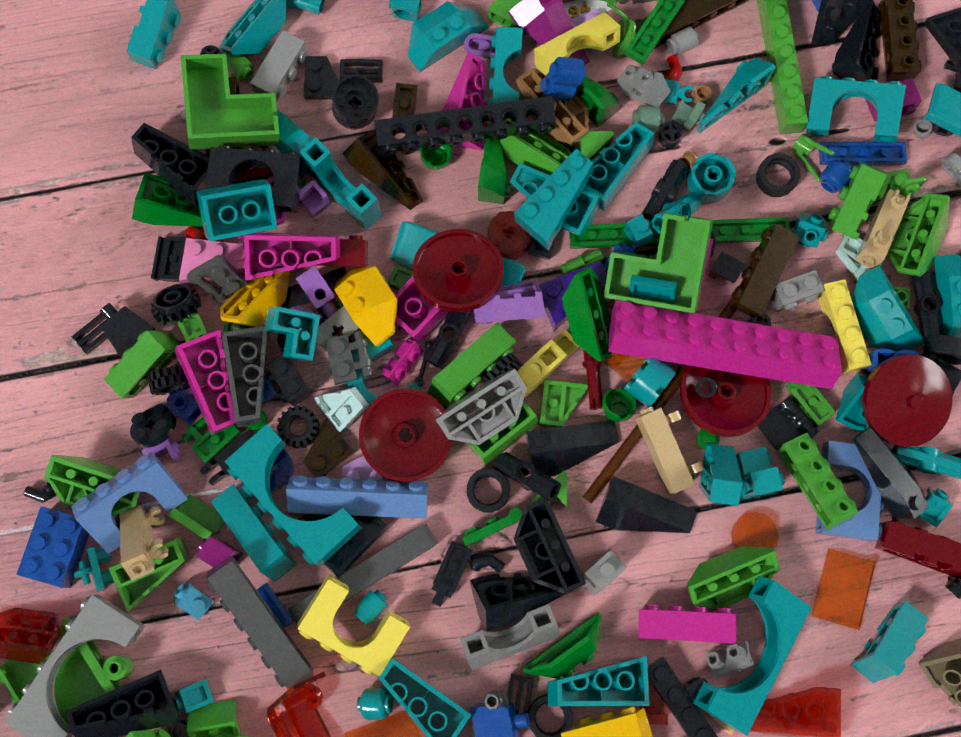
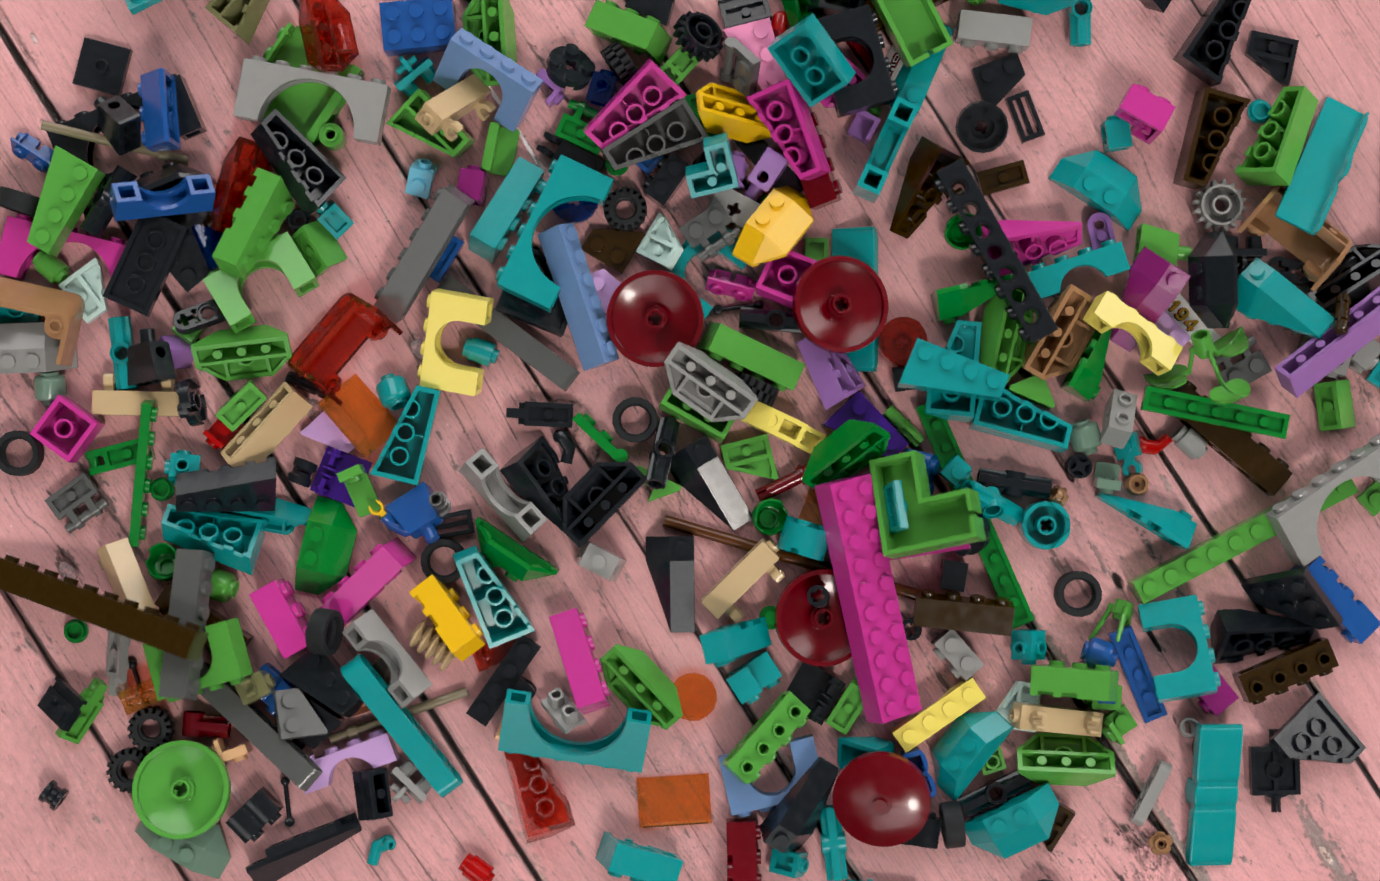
camera: 70 degrees right, 10 degrees up
(563, 78) = (1084, 333): blue brick -> none

